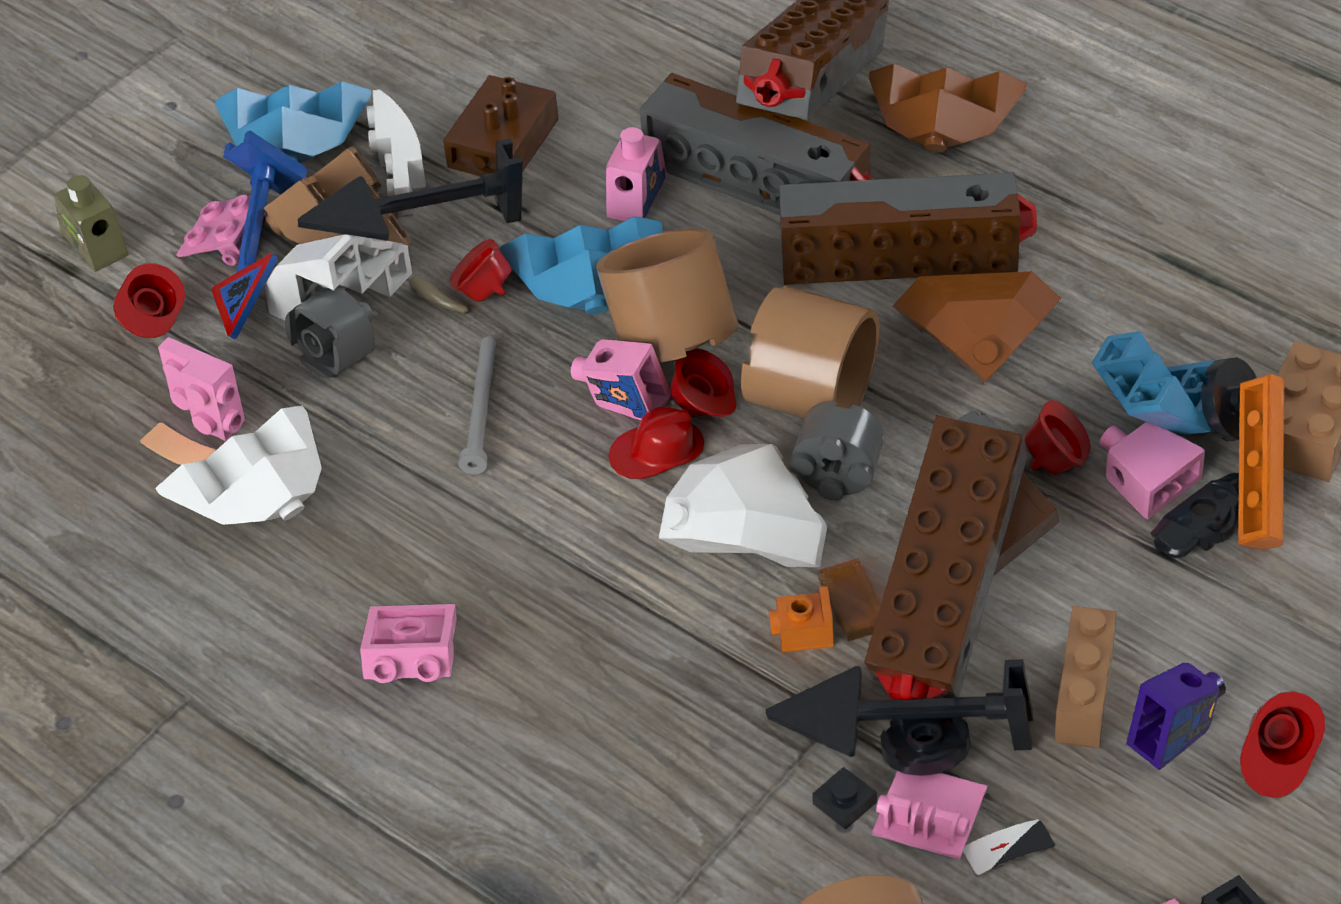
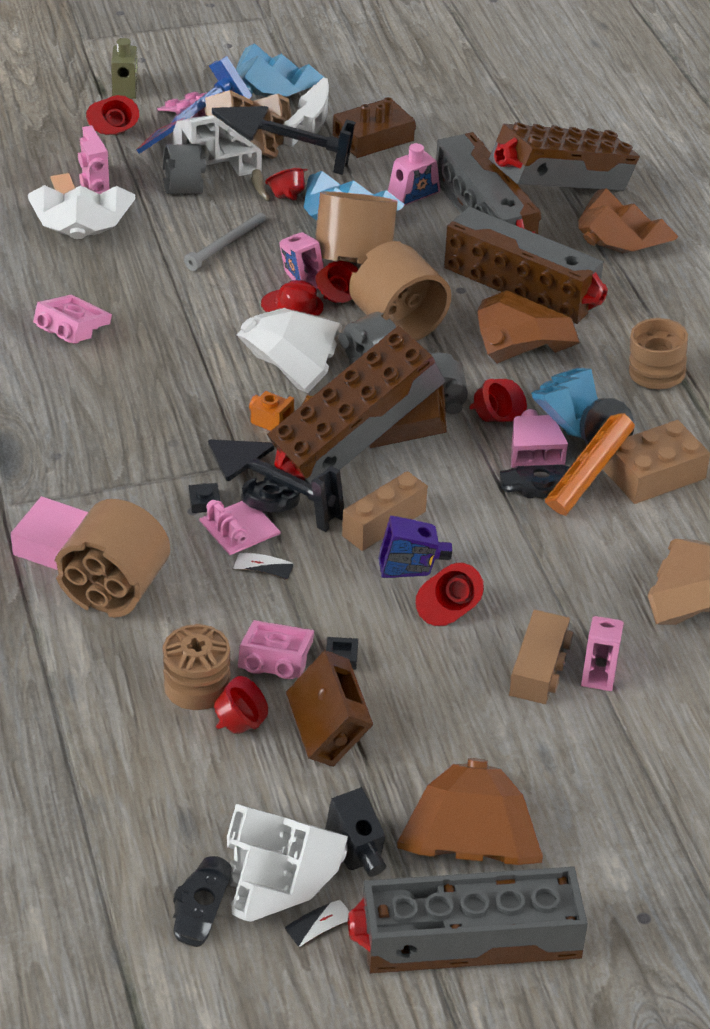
camera: 30 degrees right, 5 degrees down
(1175, 261) = (658, 353): none -> medium nougat wheel

